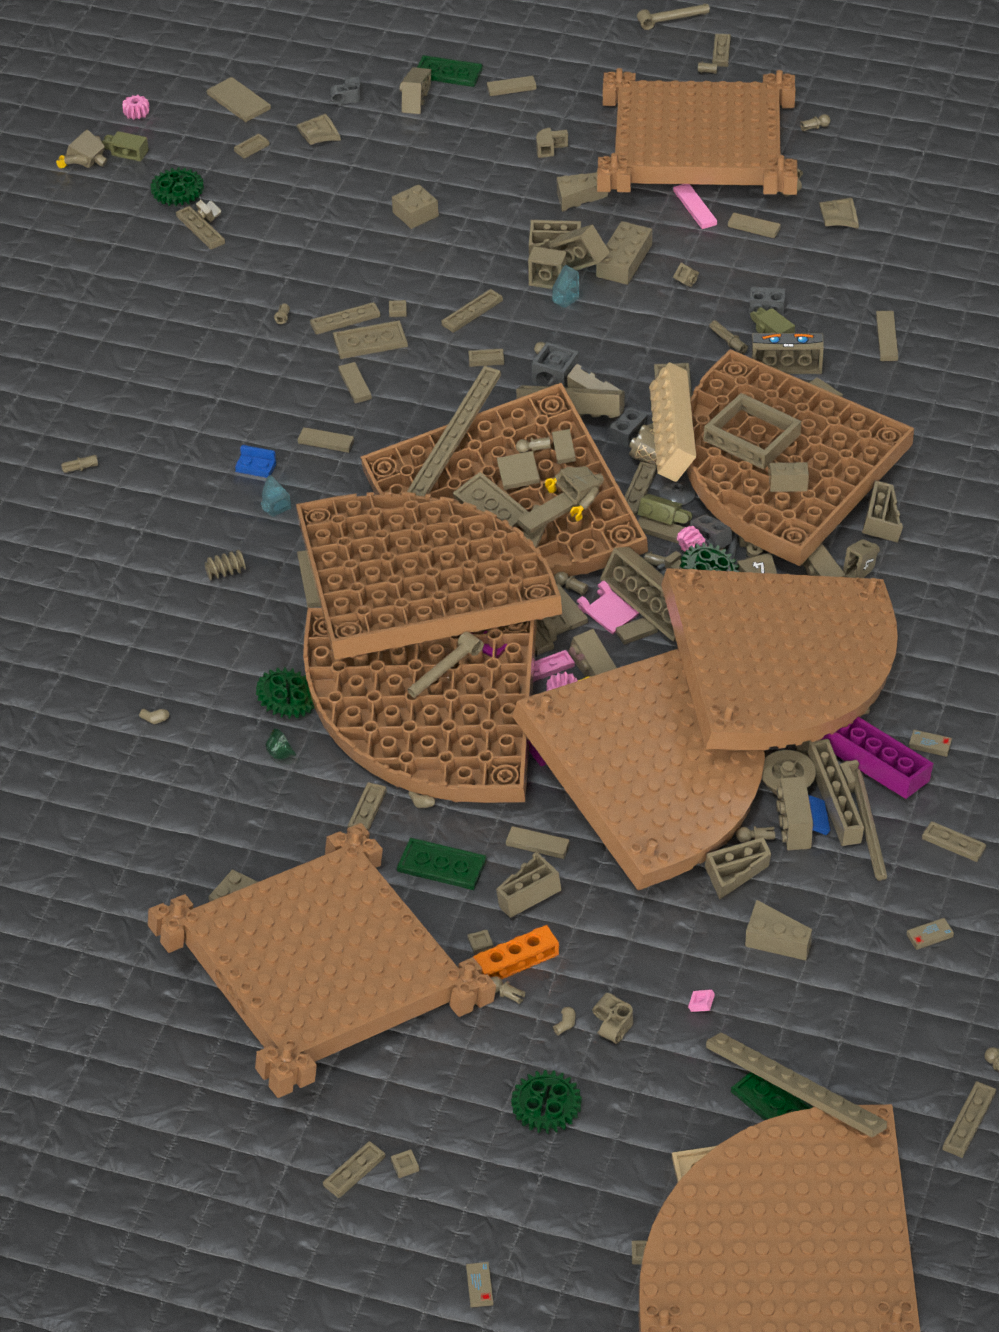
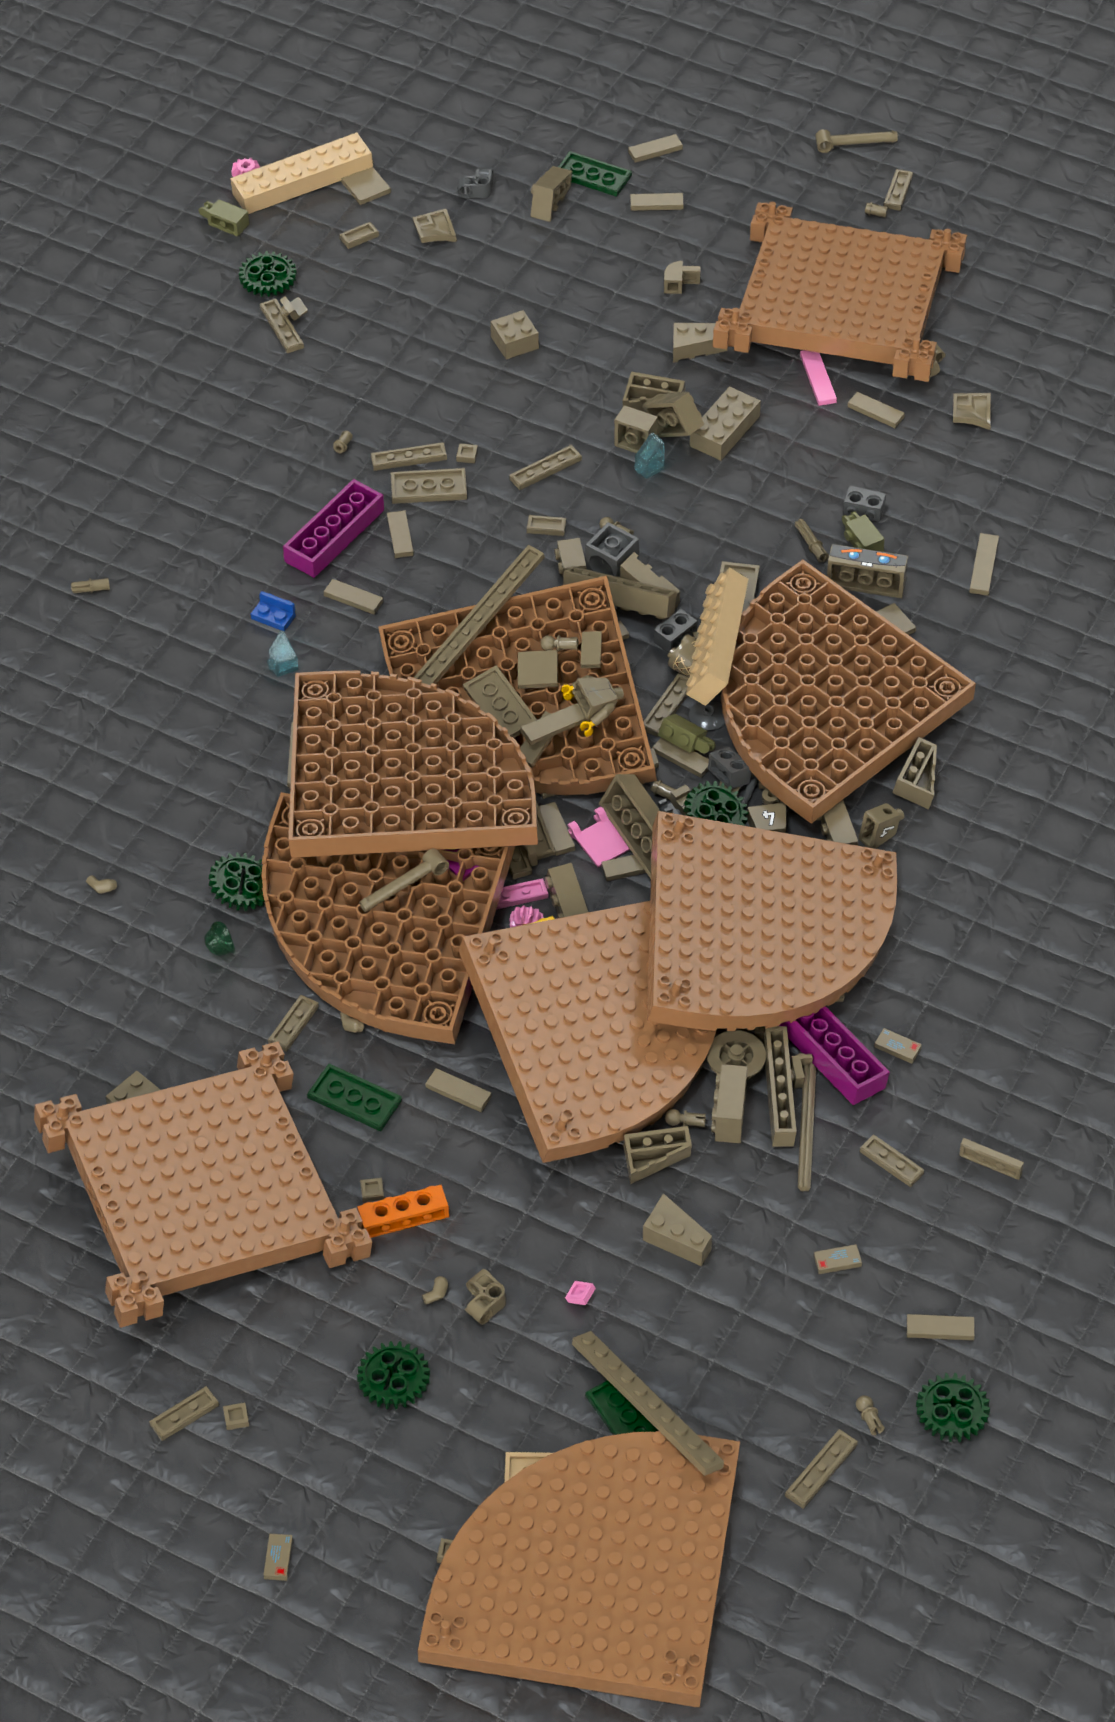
camera: 10 degrees right, 5 degrees up
(84, 151) = (178, 218): dark tan torso -> none
(187, 101) = (301, 173): none -> tan brick
(224, 564) = (211, 726): dark tan piece -> none
(293, 384) = (333, 528): none -> magenta brick
(498, 44) = (655, 148): none -> tile
(507, 990) = (384, 1247): dark tan pin -> none
(514, 376) = (569, 554): none -> dark tan brick
(528, 886) = (434, 1138): dark tan wedge -> none
(571, 583) = (560, 796): dark tan pin -> none
(686, 275) = (785, 459): dark tan bracket -> none
(689, 537) = (705, 771): bright pink gear -> none
(744, 449) = (779, 680): dark tan window -> none
(788, 477) = (821, 721): dark tan slope -> none
(819, 815) = (755, 1107): blue tile -> none
(823, 120) = (986, 293): dark tan pin -> none

